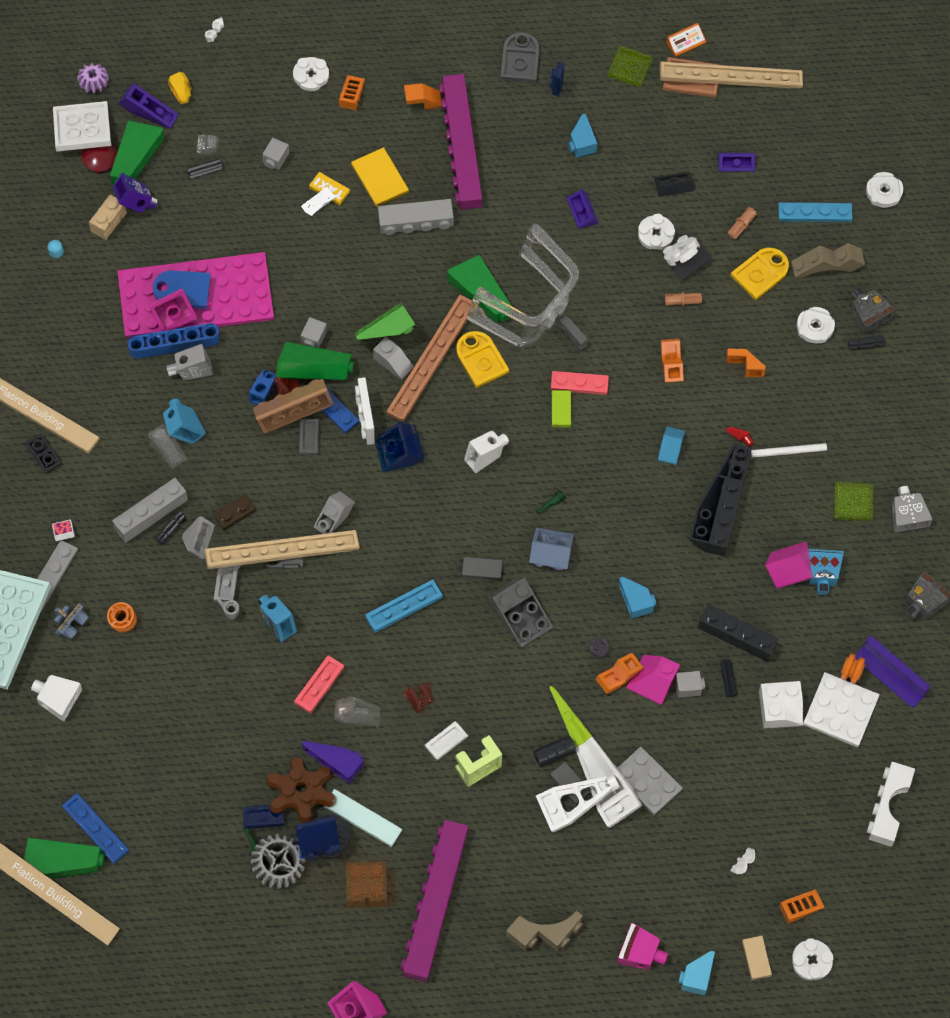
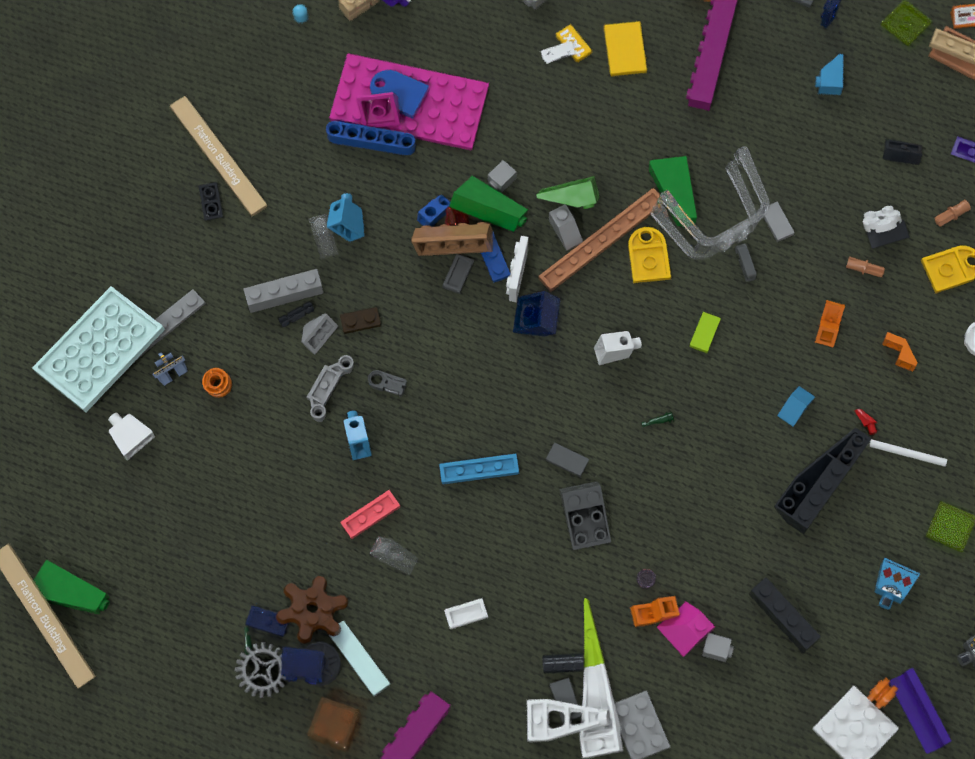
camera: 25 degrees right, 5 degrees up
(63, 530) = (198, 280): tile -> none
(95, 828) = (112, 573): blue tile -> none
(191, 363) = (377, 166): light grey torso -> none
(281, 549) = (387, 372): tan tile -> none
(333, 513) = (450, 355): light grey slope -> none
(338, 759) = (357, 593): dark purple slope -> none
(415, 216) = (642, 98): light grey brick -> none
(417, 704) = (464, 566): clear red piece -> none
(481, 768) = (486, 653): yellowish green panel -> none
(551, 549) = (639, 465): sand blue slope -> none
(579, 382) = (732, 313): coral plate -> none
(582, 209) = (804, 146): dark purple slope -> none
(589, 288) = (778, 222): none -> light grey tile
(636, 598) = (701, 544): dark azure slope -> none
(660, 223) = (868, 183): white plate -> none
(728, 678) = (758, 655): black axle -> none
(781, 704) = (798, 702): white slope -> none
(789, 565) = (862, 567): dark pink slope -> none

